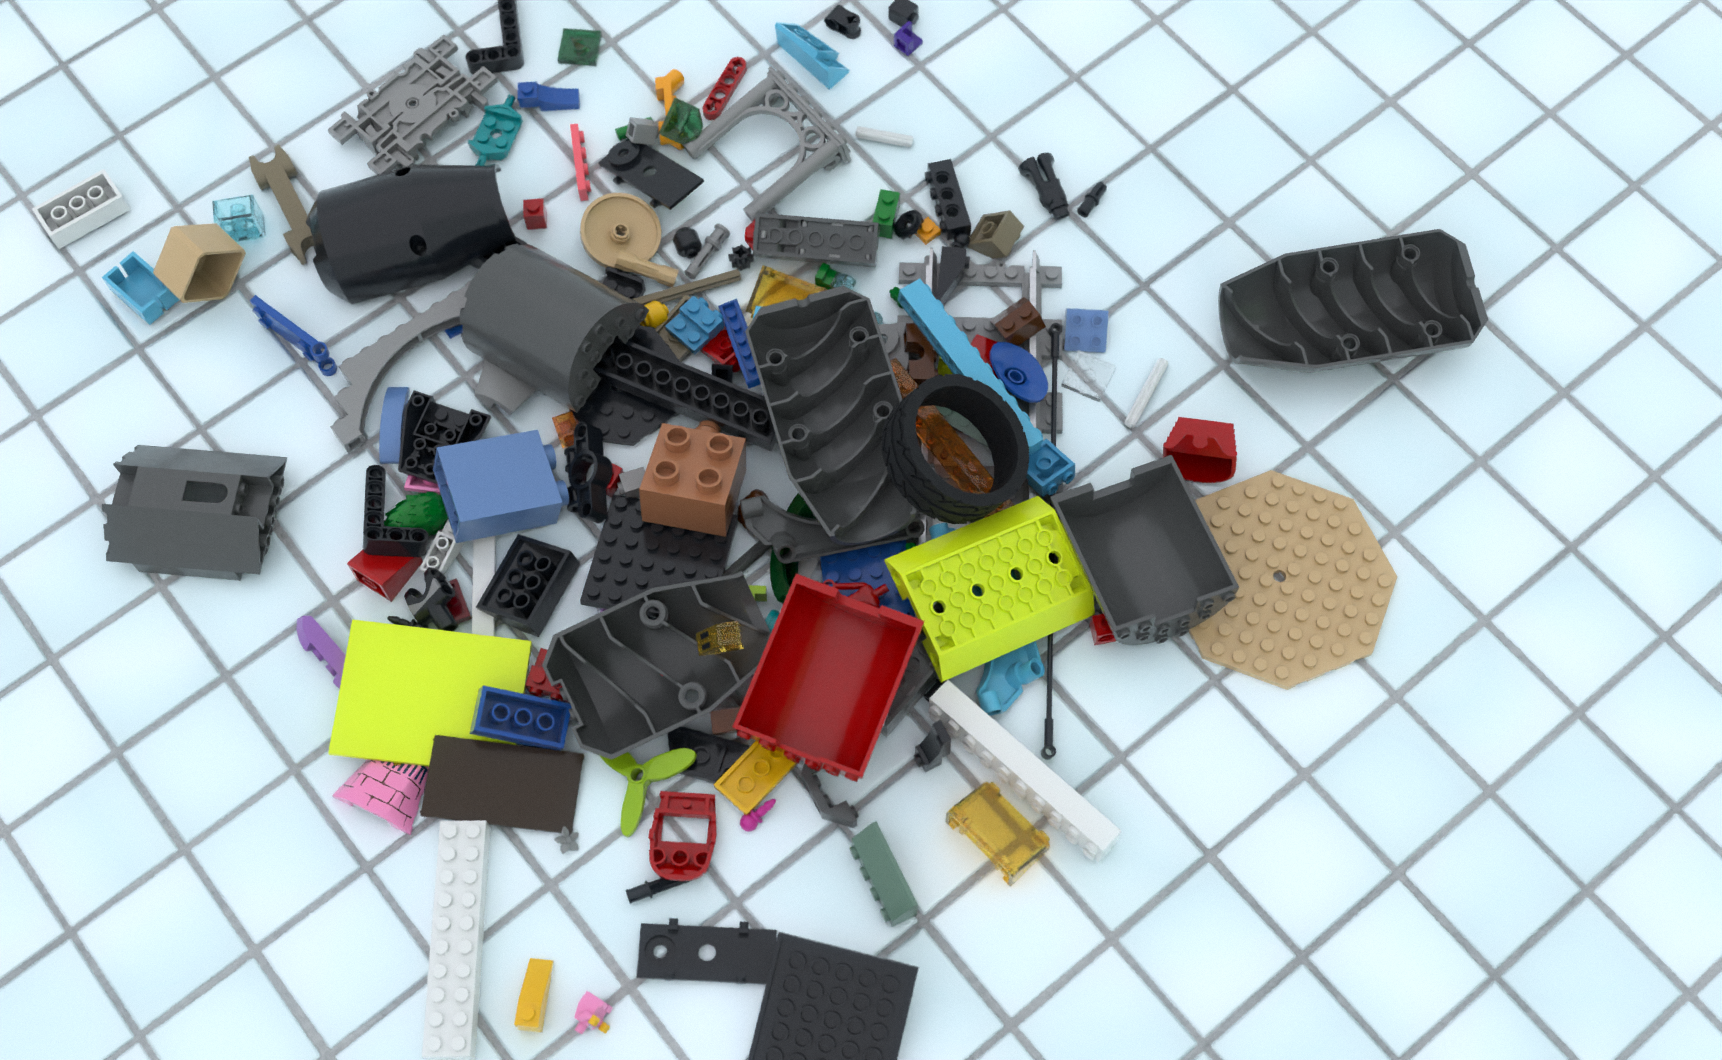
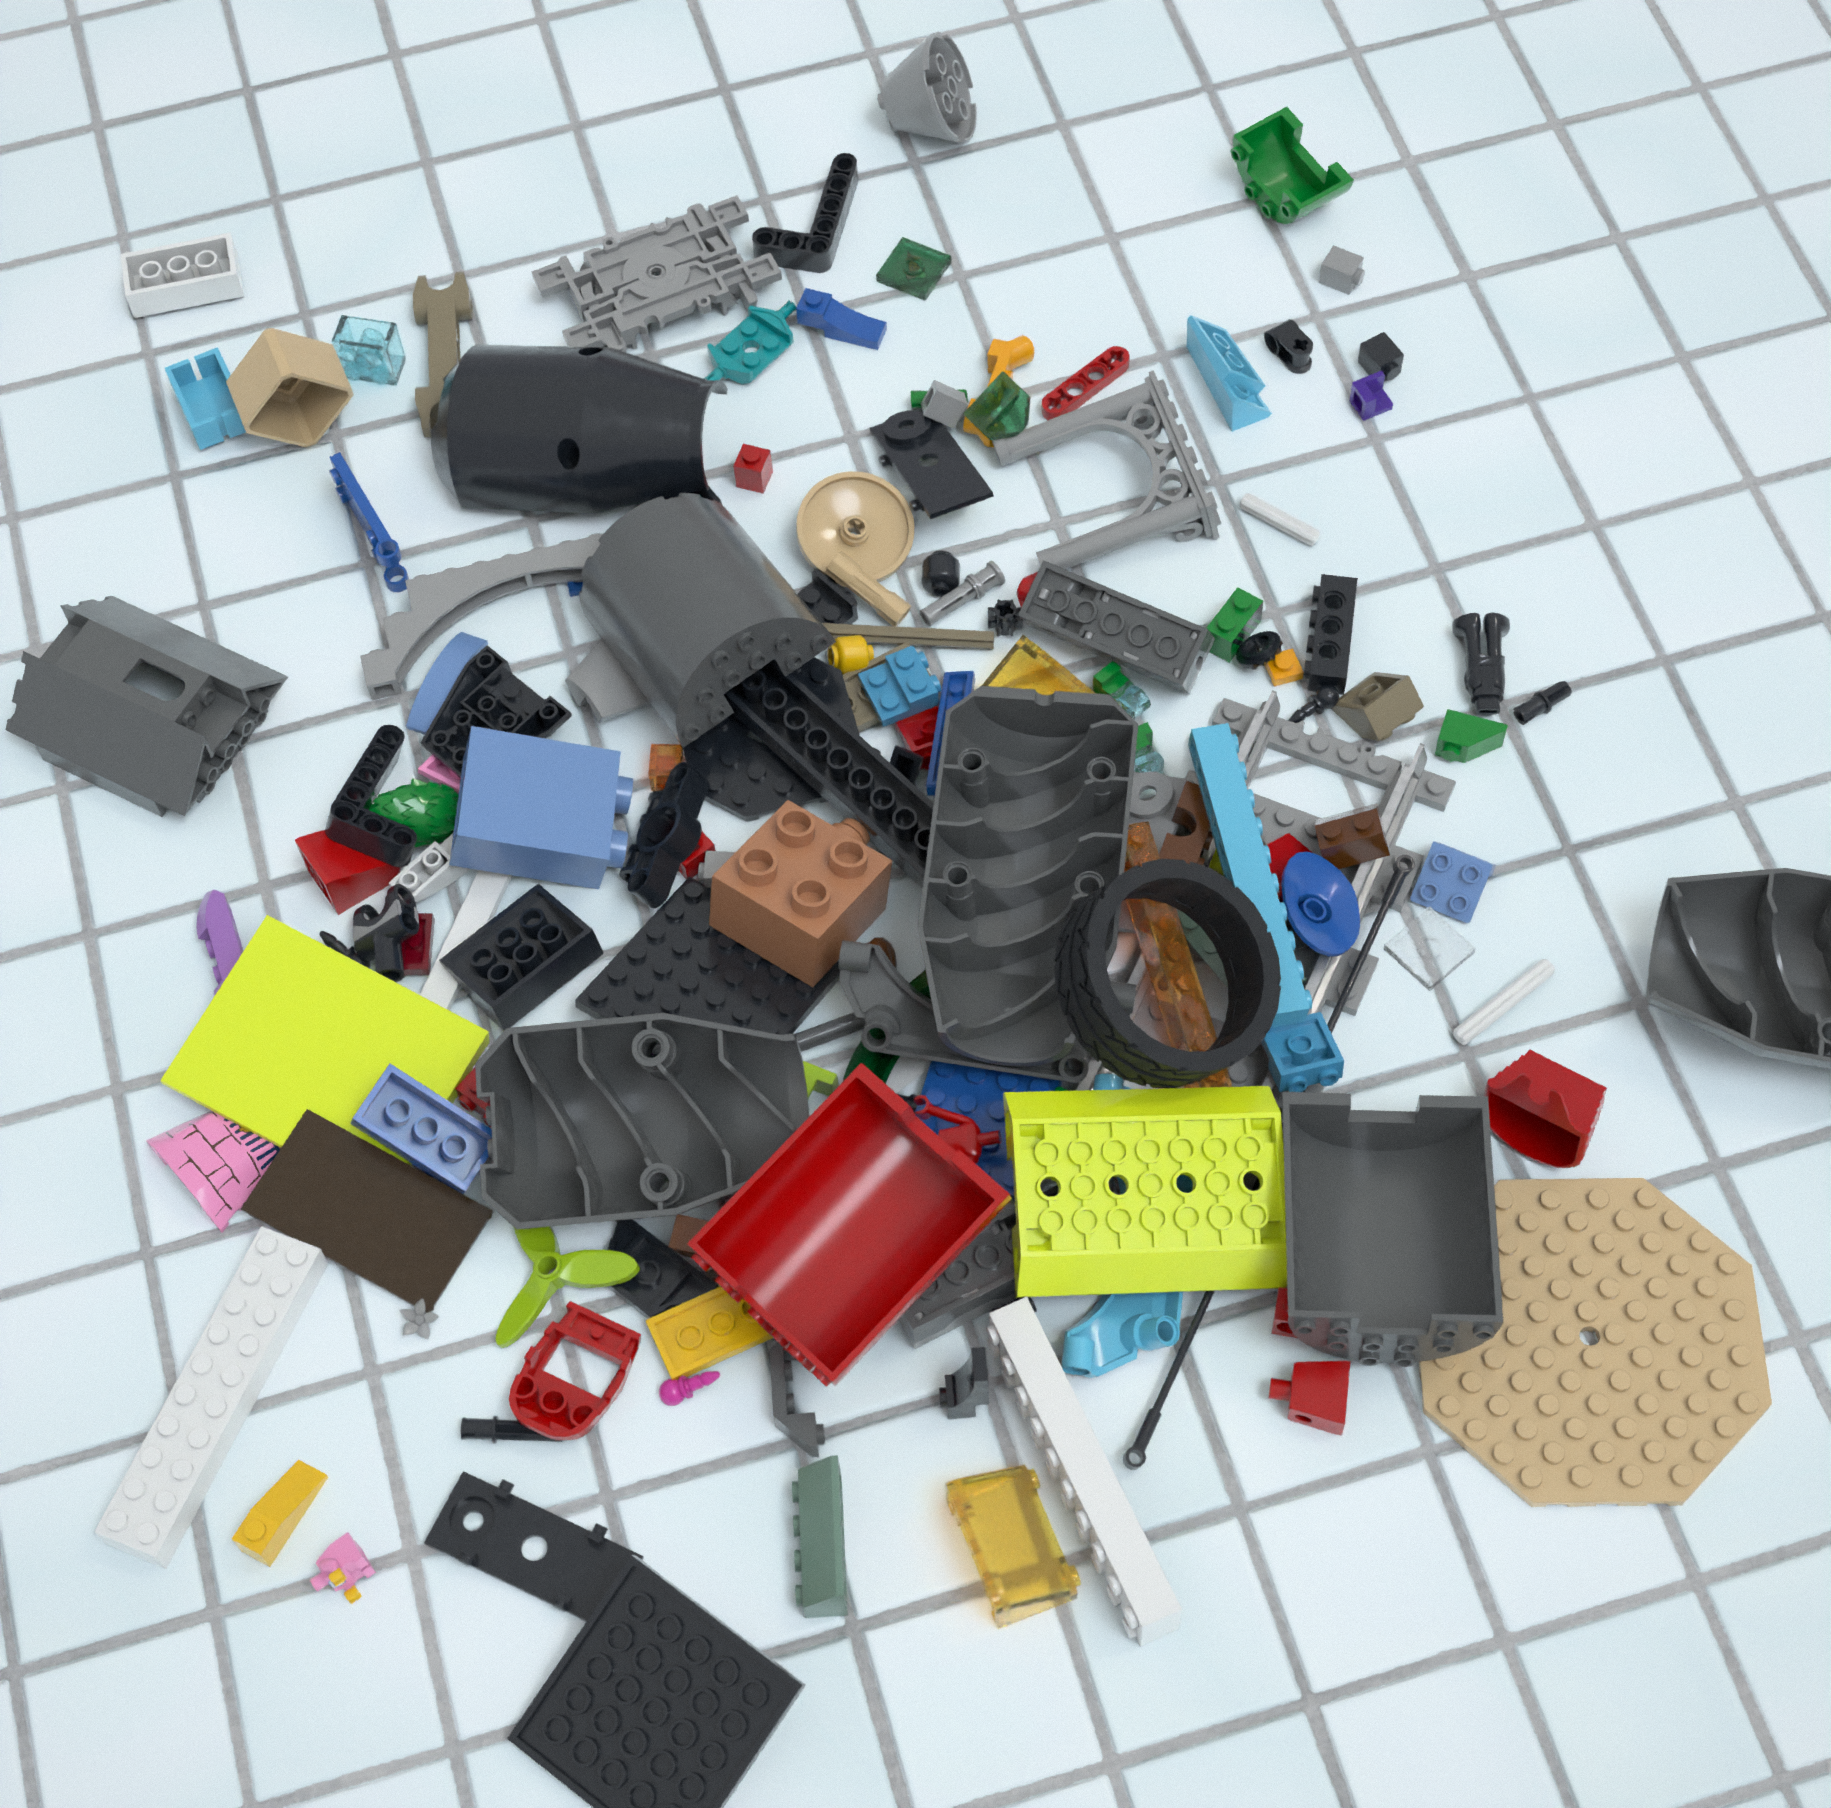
camera: 25 degrees right, 5 degrees down
(579, 156) = (841, 427): coral plate -> none
(720, 638) = (732, 1119): clear yellow slope -> none
(951, 271) = (1286, 736): black slope -> none
(1057, 236) = (1468, 737): none -> green slope
(1138, 672) = (1315, 1394): none -> red torso

